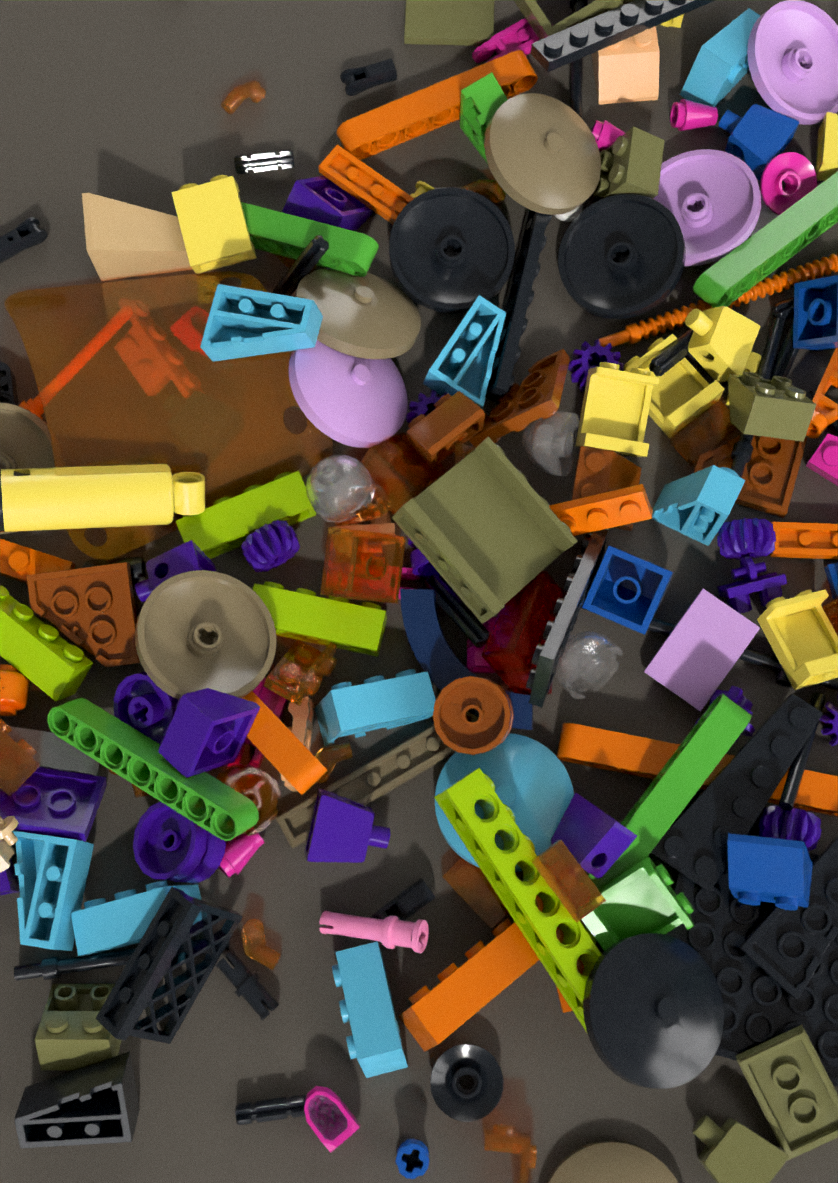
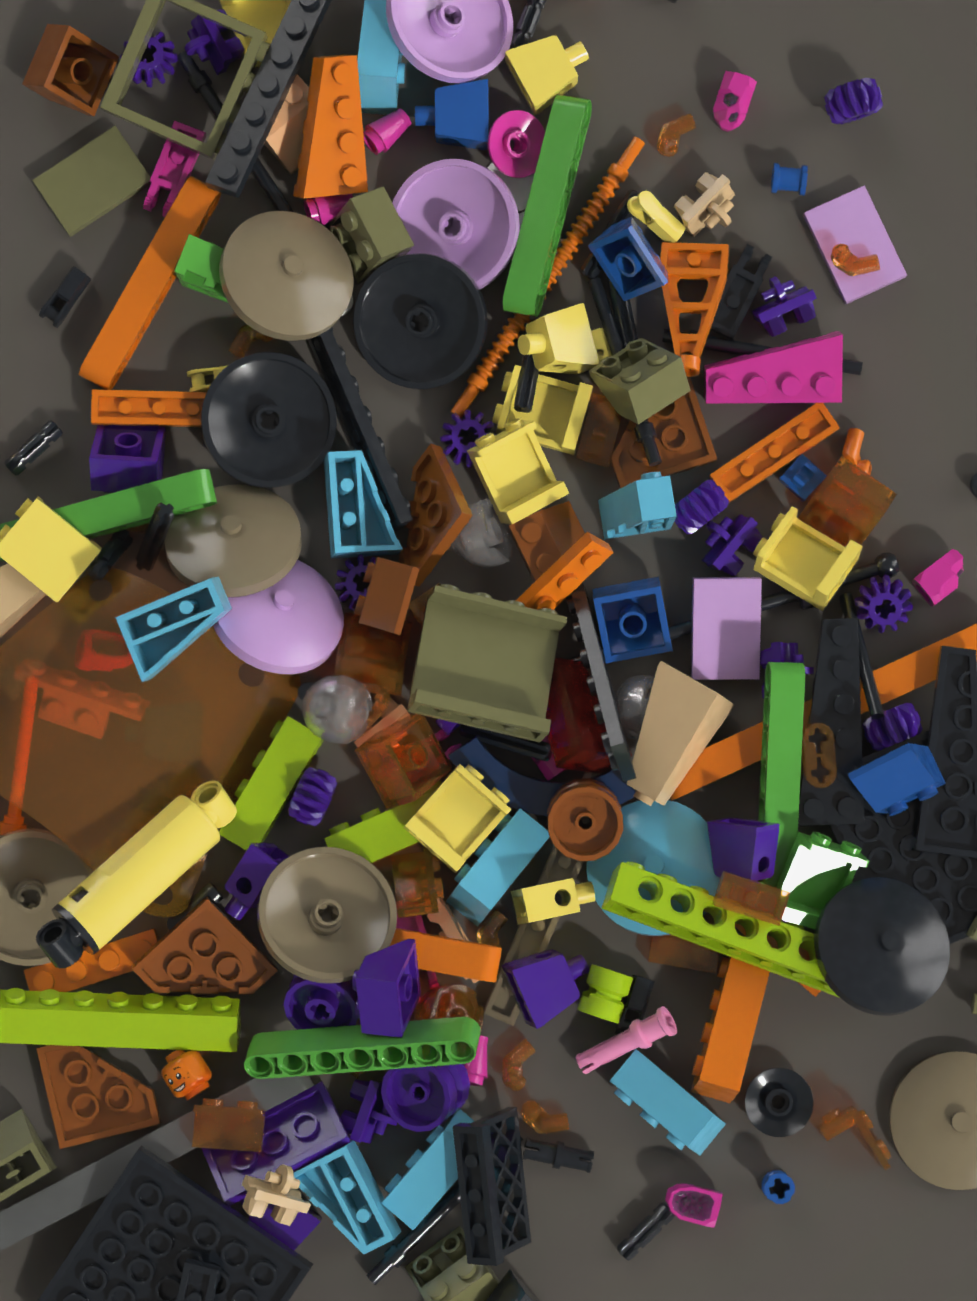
camera: 35 degrees left, 10 degrees up
(118, 835) = (372, 1114): none -> dark purple hips
(257, 265) = (109, 555): none -> black axle
(266, 881) = (513, 1065): none -> clear orange arm
(372, 640) = (458, 817): none -> light yellow panel
(383, 760) = (539, 901): none -> light yellow torso
(386, 876) = (605, 994): none -> lime wheel
(601, 697) = (674, 732): none -> tan slope
(654, 80) = (333, 137): none -> orange wedge
(719, 807) = (827, 755): none -> clear orange beam

